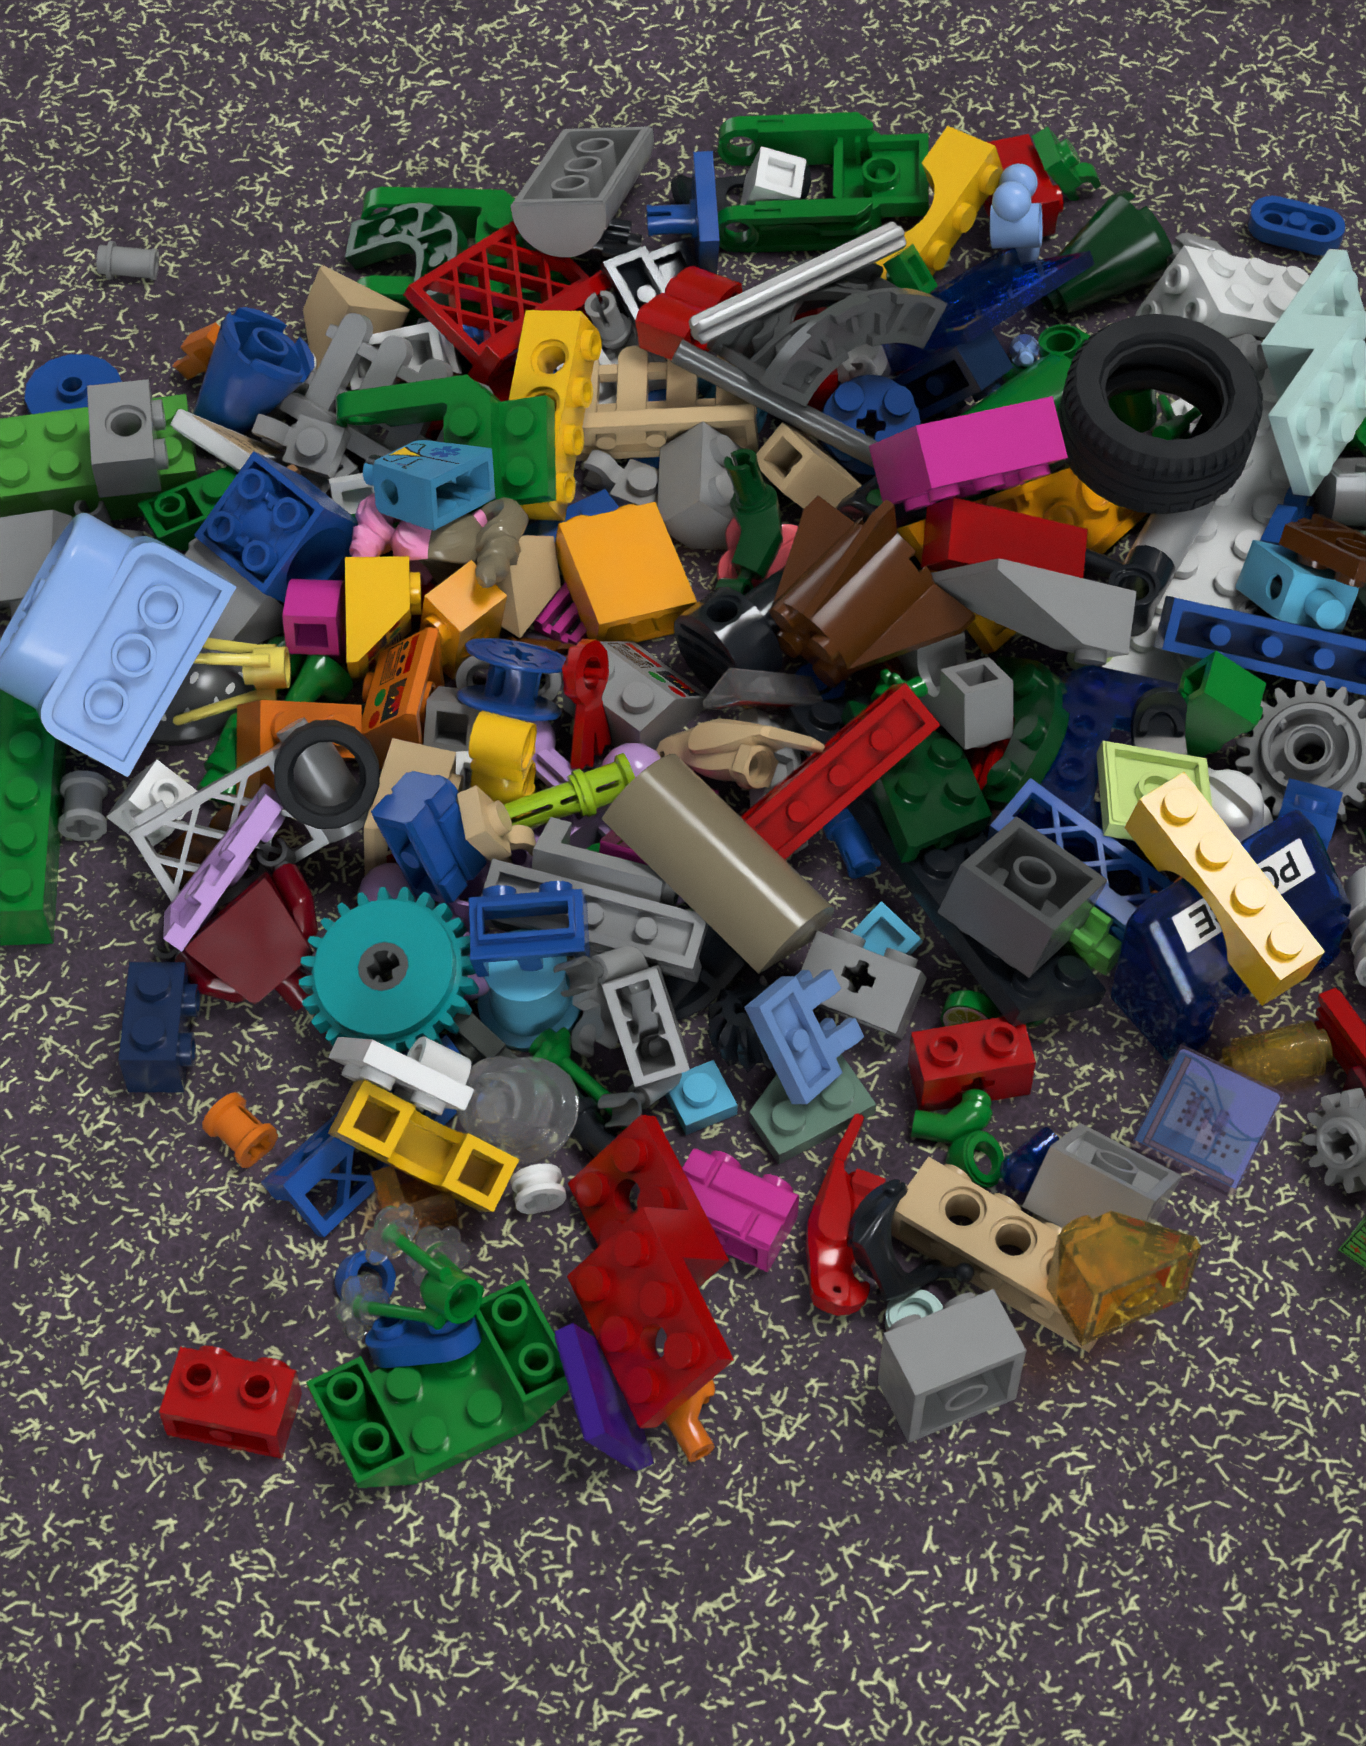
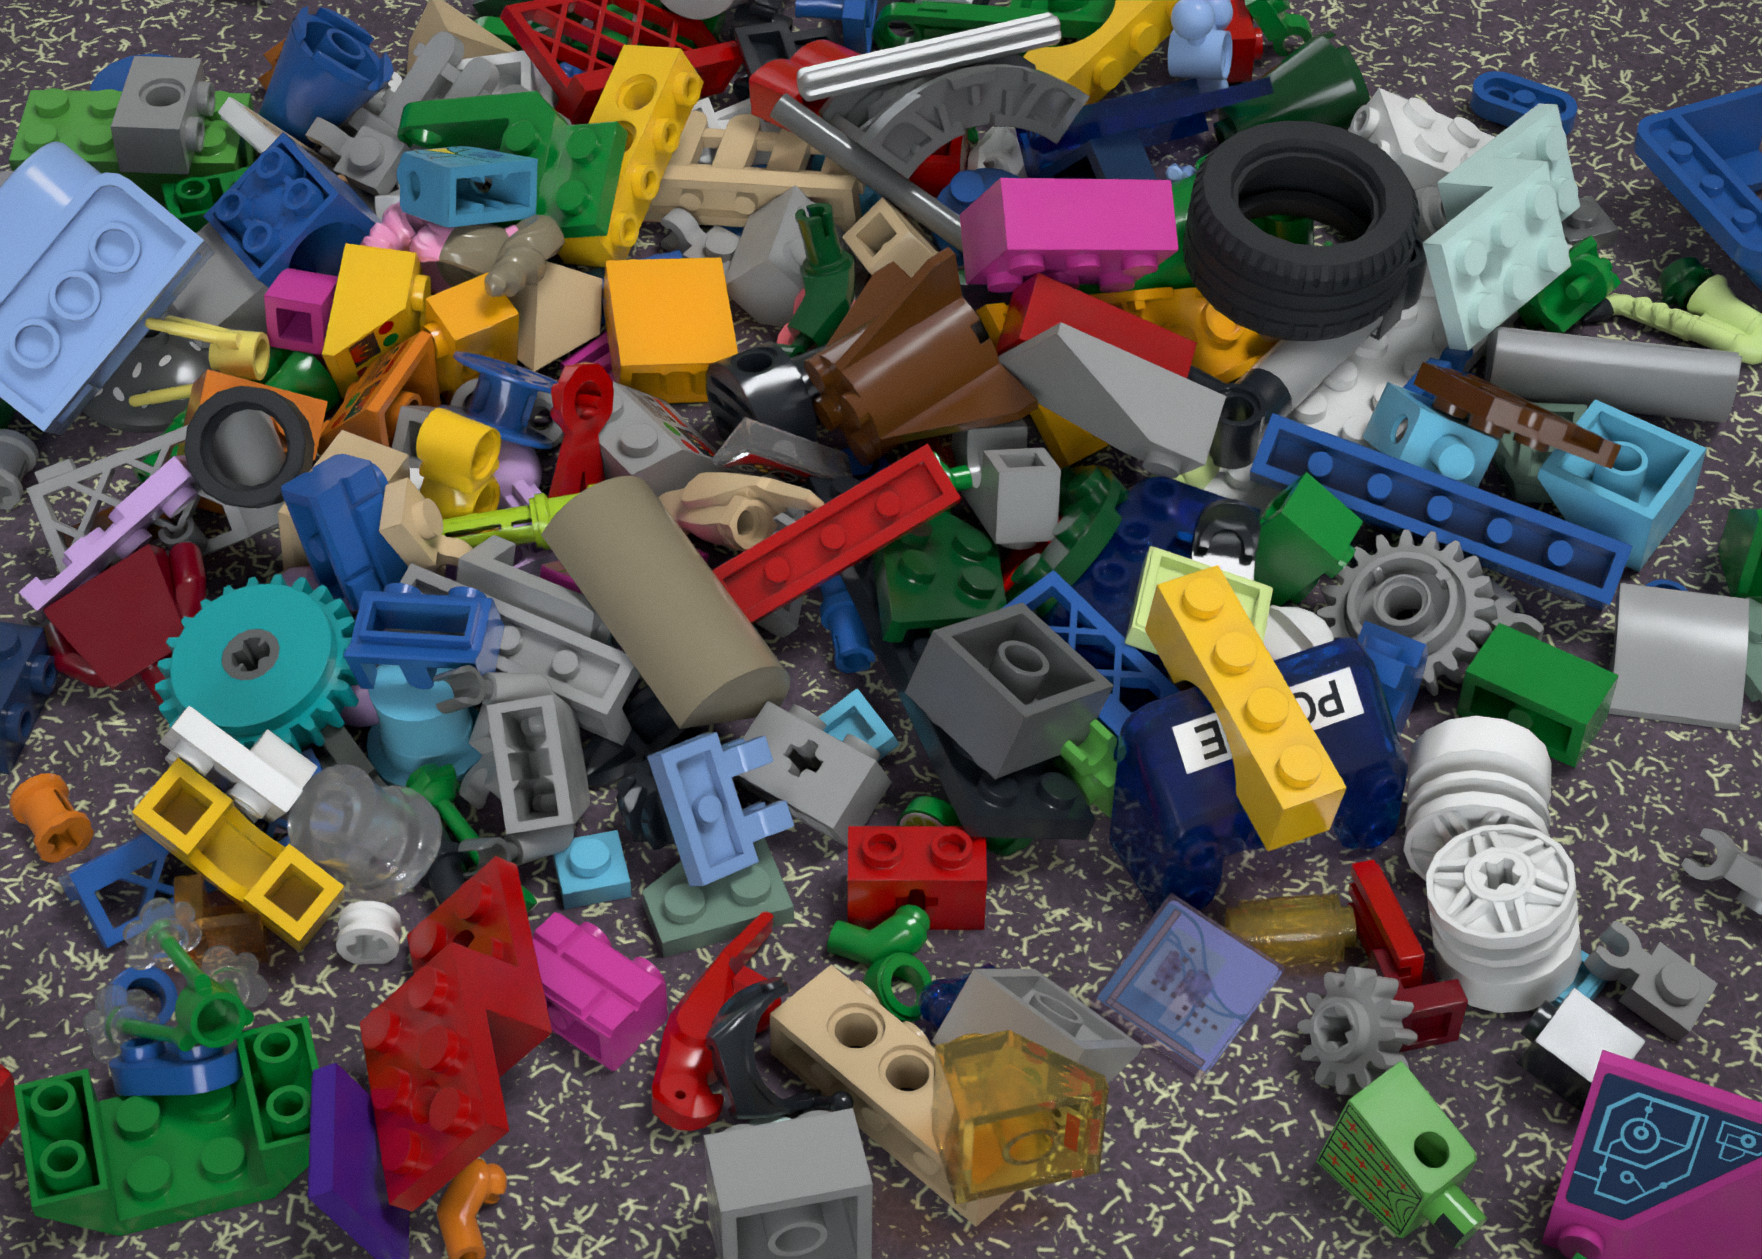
camera: 10 degrees right, 10 degrees down
(146, 789) = (84, 448): white brick -> none
(608, 320) = (727, 87): light grey pin -> none
(909, 271) = (1068, 67): green plate -> none

